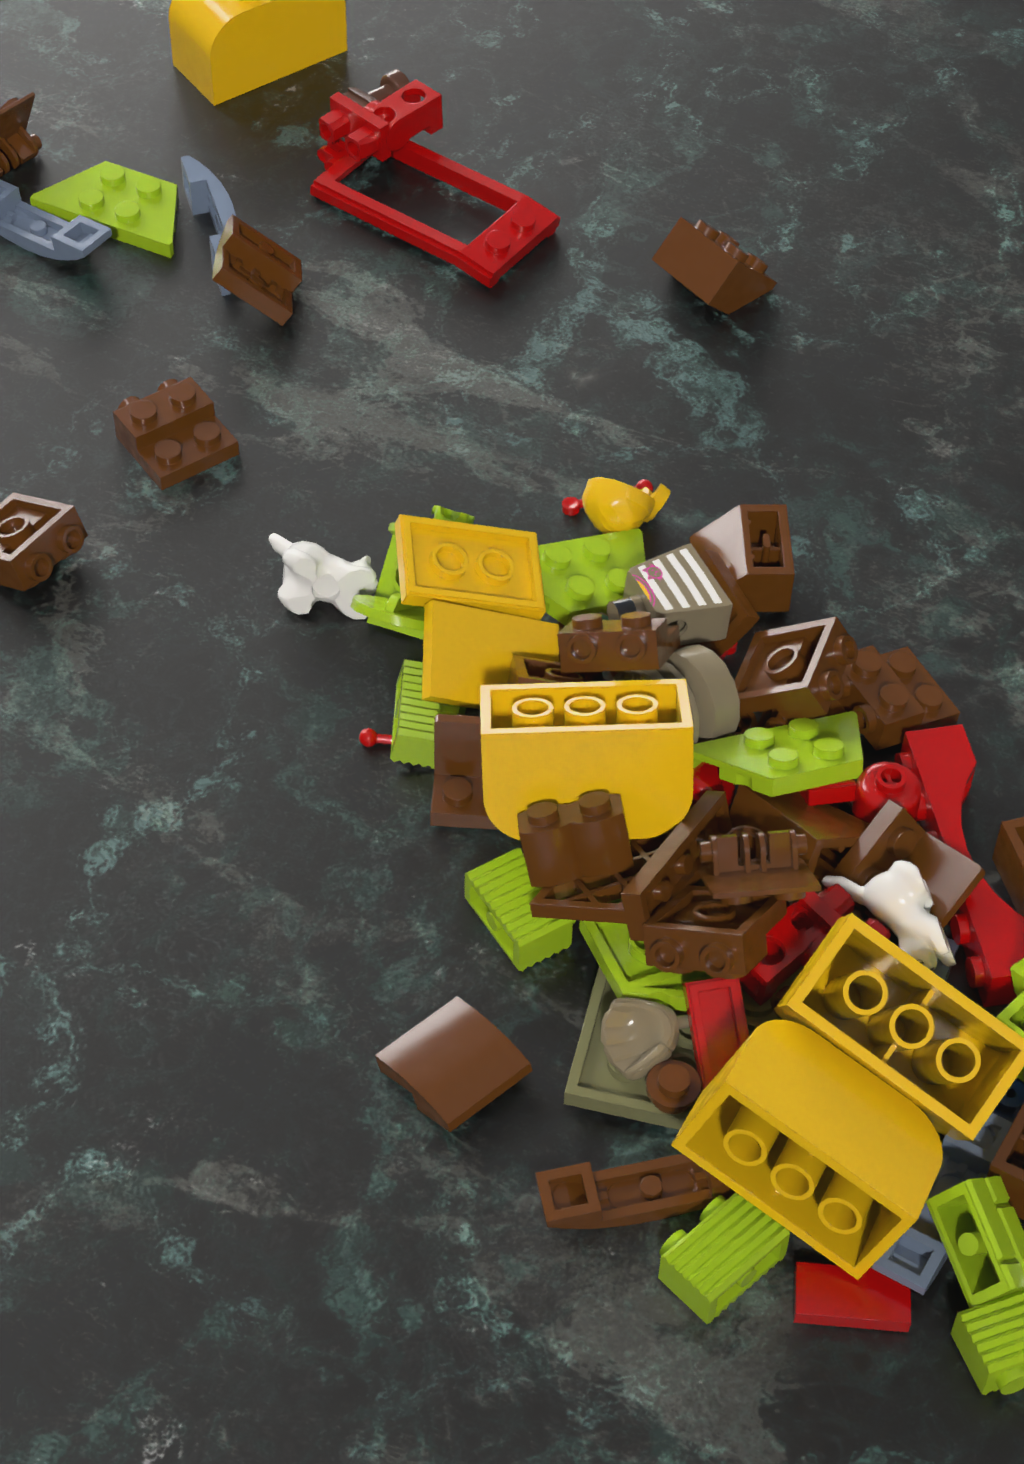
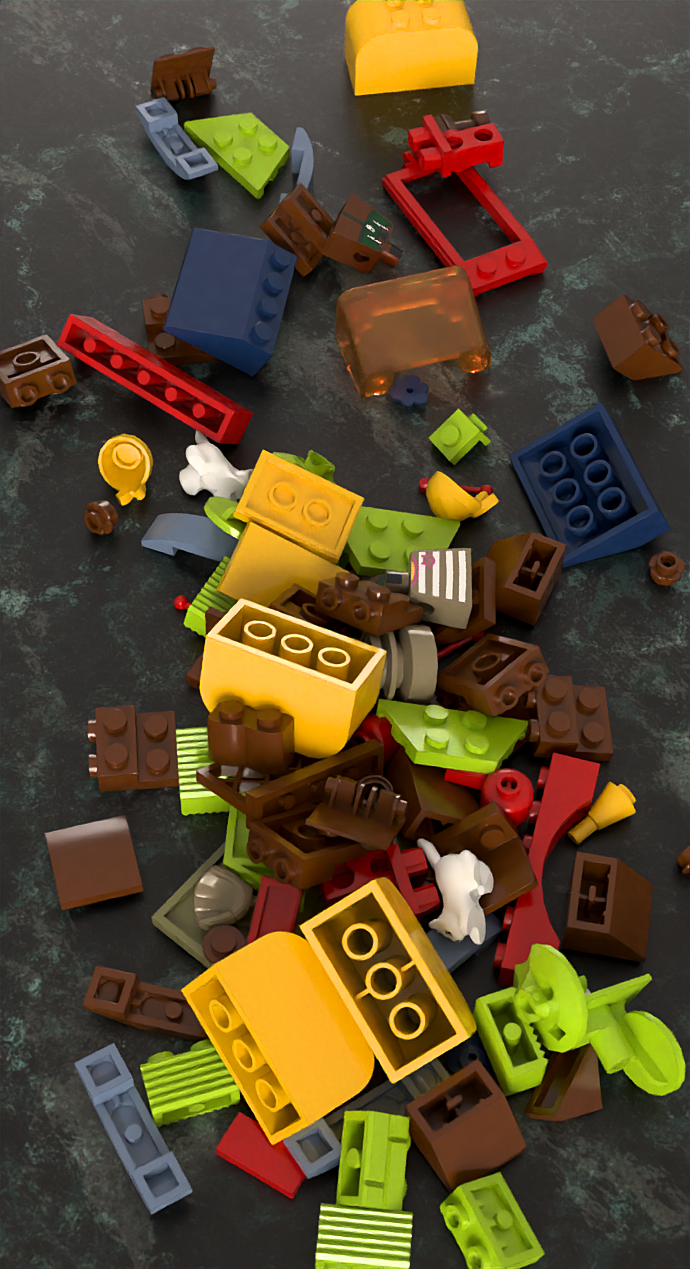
camera: 25 degrees right, 5 degrees up
(184, 495) = (155, 379): none -> red brick
(213, 606) = (126, 466): none -> yellow piece
(217, 667) = (100, 517): none -> reddish brown plate
(227, 371) = (231, 297): none -> dark blue slope
(331, 255) = (360, 237): none -> reddish brown torso
(346, 651) = (191, 534): none -> sand blue slope
(419, 920) = (133, 749): none -> reddish brown plate
(452, 335) = (409, 326): none -> clear orange windscreen
(489, 409) = (410, 391): none -> dark blue plant
(579, 437) = (459, 435): none -> lime bracket
(688, 1340) = (132, 1129): none -> sand blue slope
(760, 437) = (589, 488): none -> dark blue slope
(891, 498) = (662, 574): none -> reddish brown plate
(995, 767) = (610, 807): none -> yellow cone

